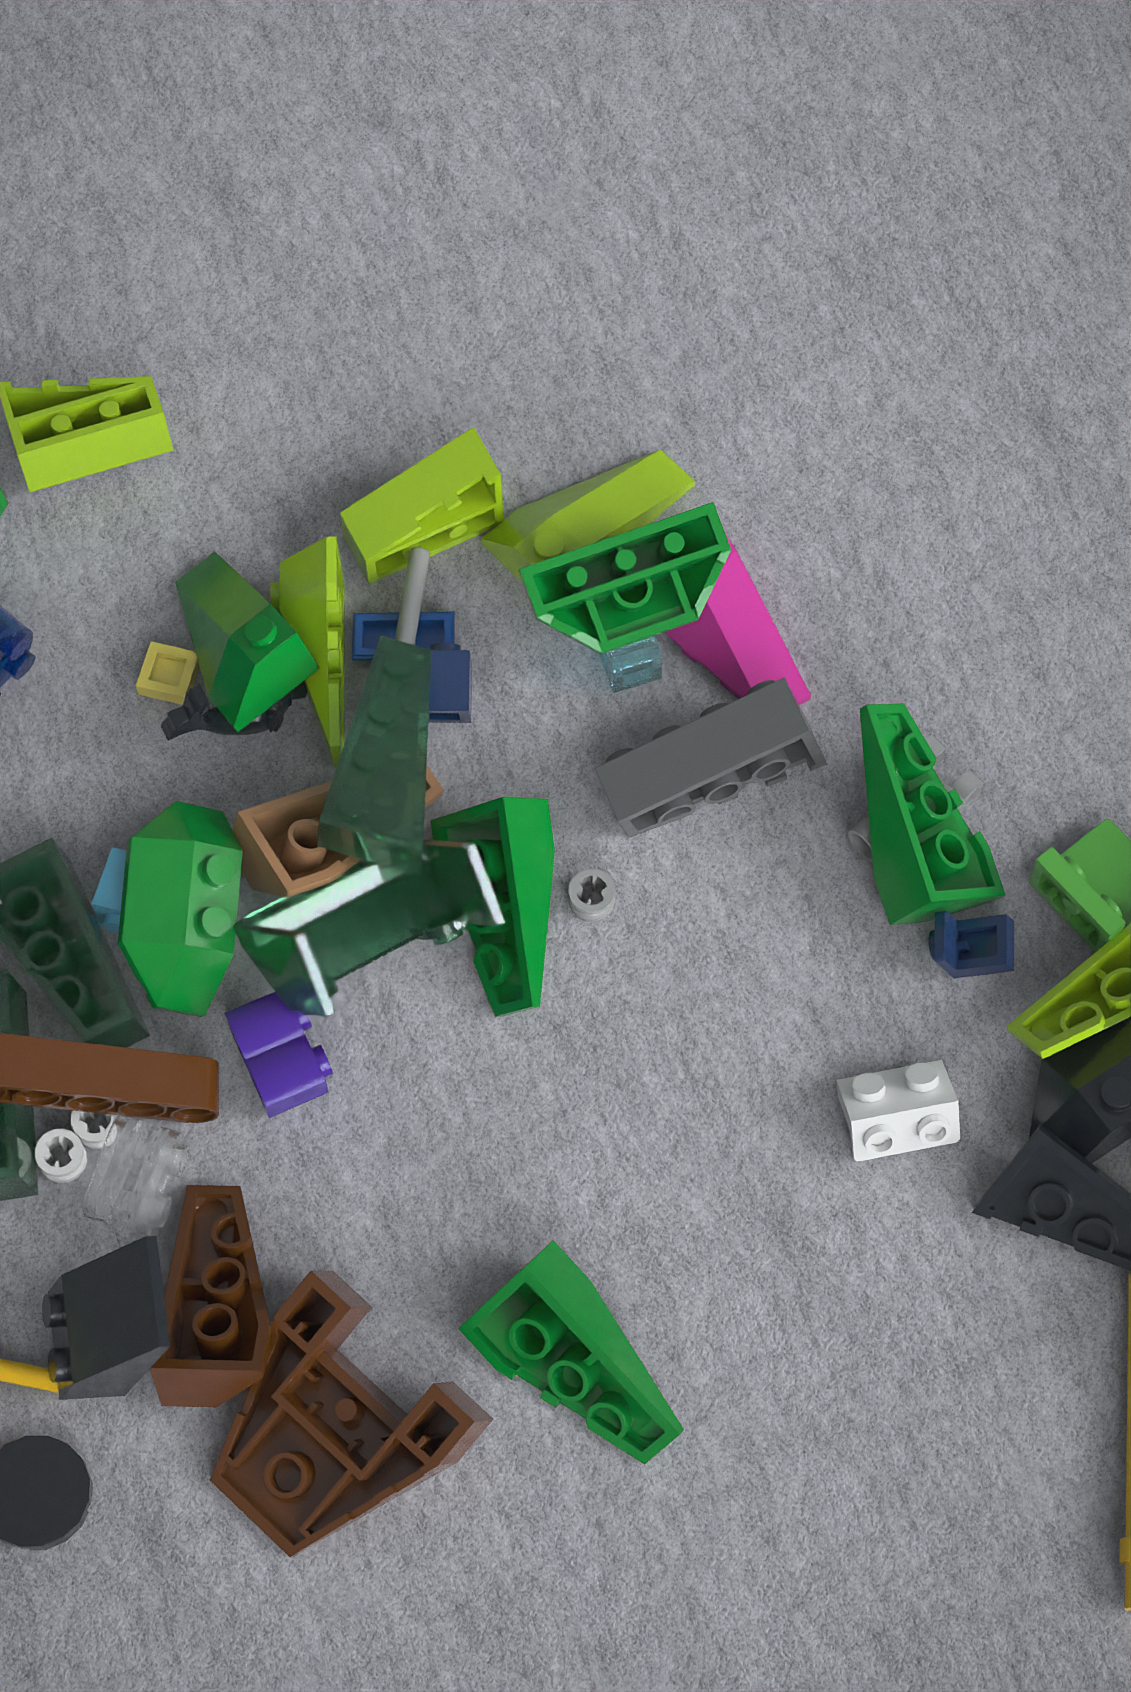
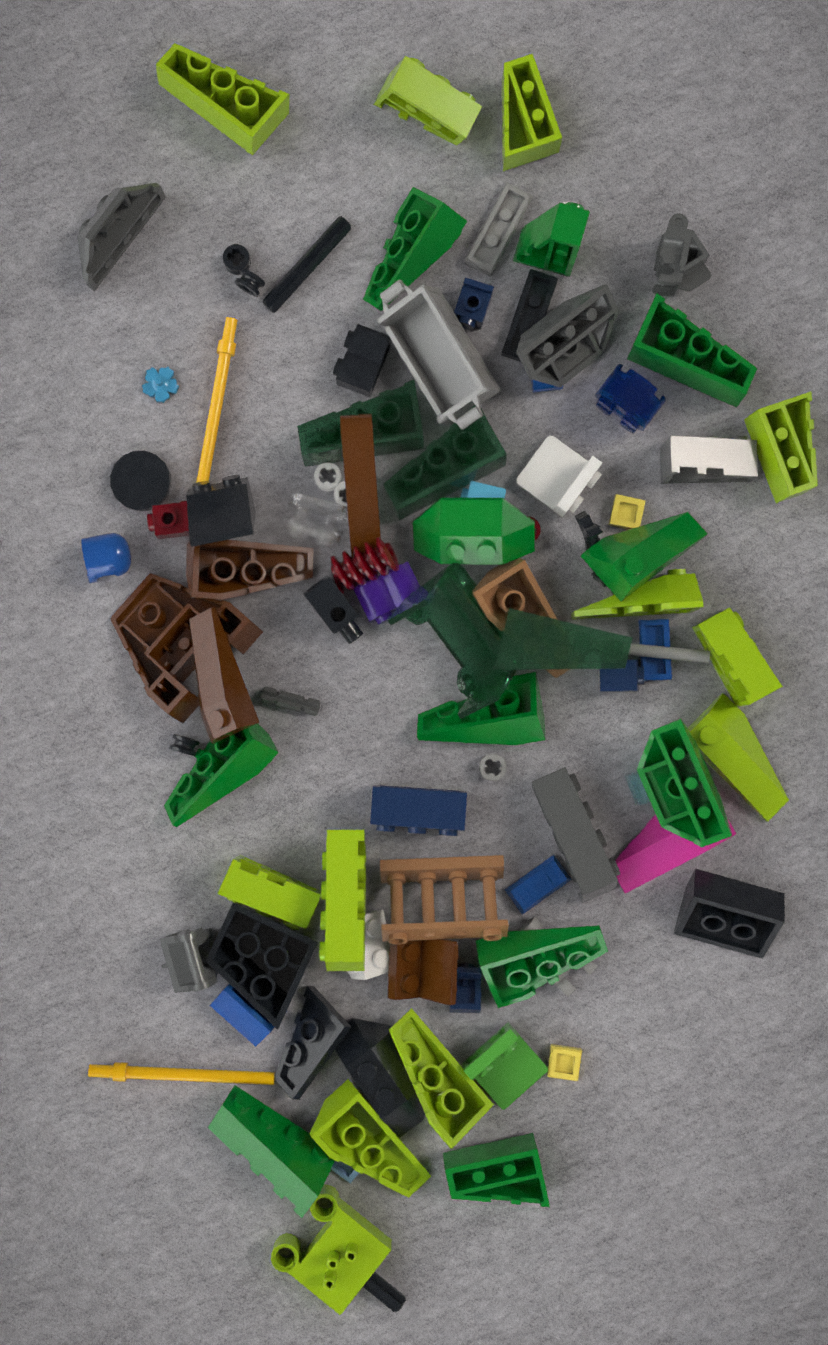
camera: 85 degrees right, 20 degrees up
(92, 544) = (708, 460): none -> wedge
(99, 770) = (558, 476): none -> white bracket
(128, 1450) = (177, 528): none -> dark red brick
(171, 1543) = (105, 555): none -> blue helmet
(222, 1079) = (363, 565): none -> dark red piece
(295, 1143) = (325, 597): none -> black torso
(429, 1333) = (220, 686): none -> reddish brown wedge
(461, 1230) = (290, 701): none -> dark grey axle
(533, 1417) = (184, 745): none -> black bush
(660, 1003) = (418, 809): none -> dark blue brick
(770, 950) = (456, 871): none -> medium nougat fence
(795, 831) = (538, 884): none -> blue tile
(804, 1265) = (270, 892): none -> lime wedge
(816, 1121) = (345, 901): none -> lime wedge
(844, 535) = (730, 913): none -> black slope
(921, 1272) = (261, 960): none -> black wedge
(930, 1420) = (184, 960): none -> dark grey piece
(938, 1001) = (424, 970): none -> reddish brown bracket
(1012, 1306) = (242, 1015): none -> blue brick
(1095, 796) = (564, 1062): none -> light yellow tile

